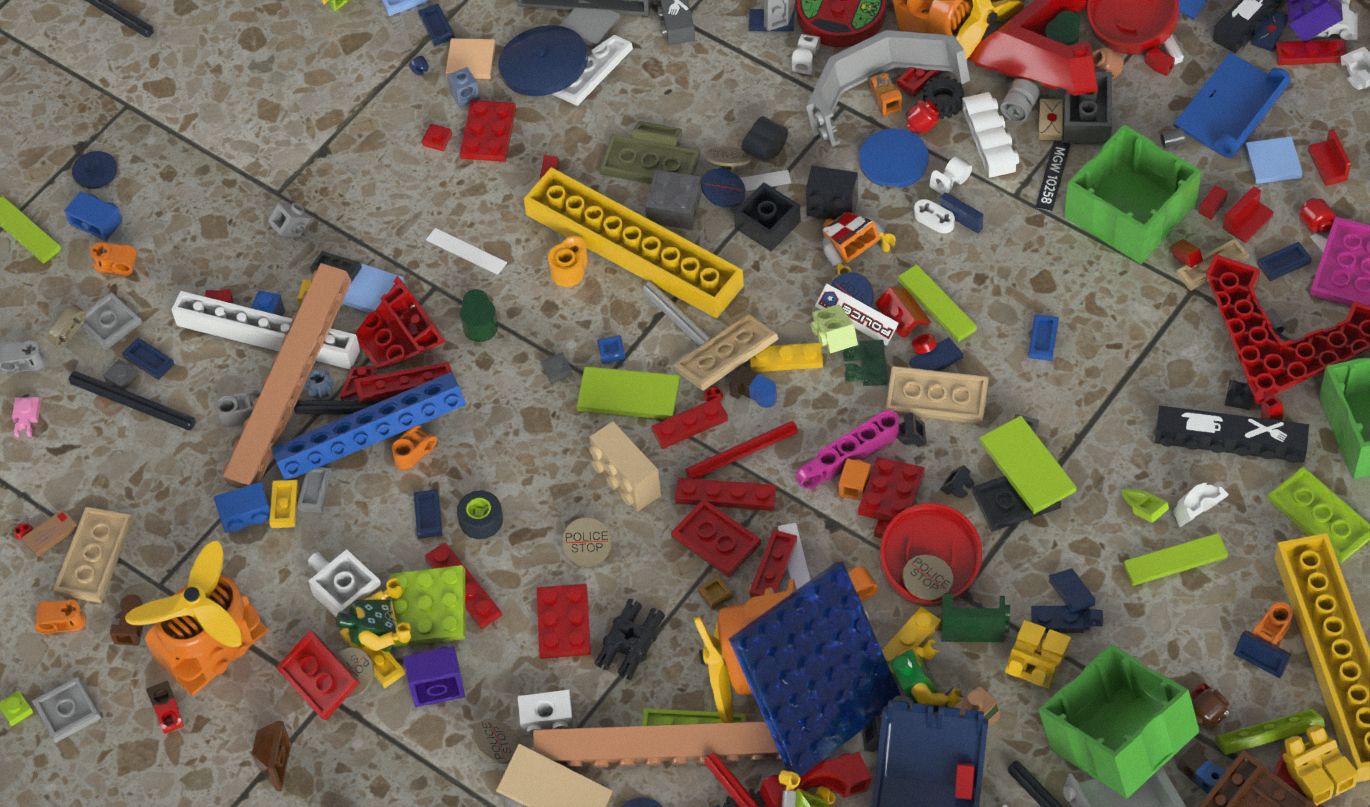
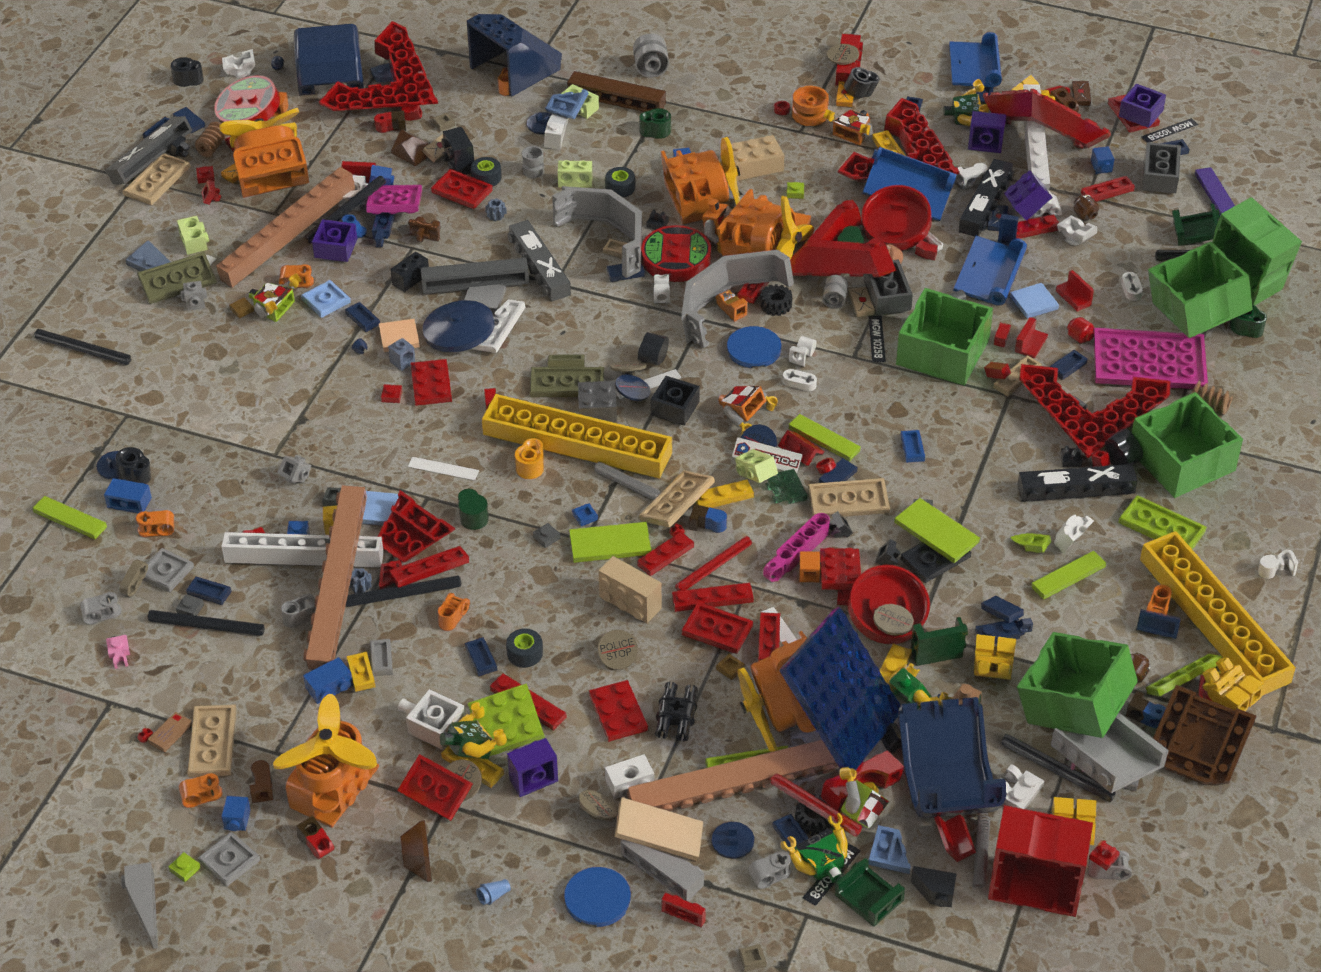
camera: 20 degrees left, 10 degrees down
(88, 655) = (236, 813): none -> blue brick
(109, 178) = (133, 465): none -> black piece
(368, 426) = (413, 601): blue brick -> none
(831, 192) = (718, 374): black brick -> none
(922, 116) = (767, 314): red head -> none
(963, 213) = (823, 373): dark blue tile -> none
(964, 781) = (974, 754): red piece -> none
(989, 134) = (821, 318): white brick -> none
(1270, 53) = (1007, 229): none -> dark blue tile
(1306, 400) = (1123, 448): none -> black piece

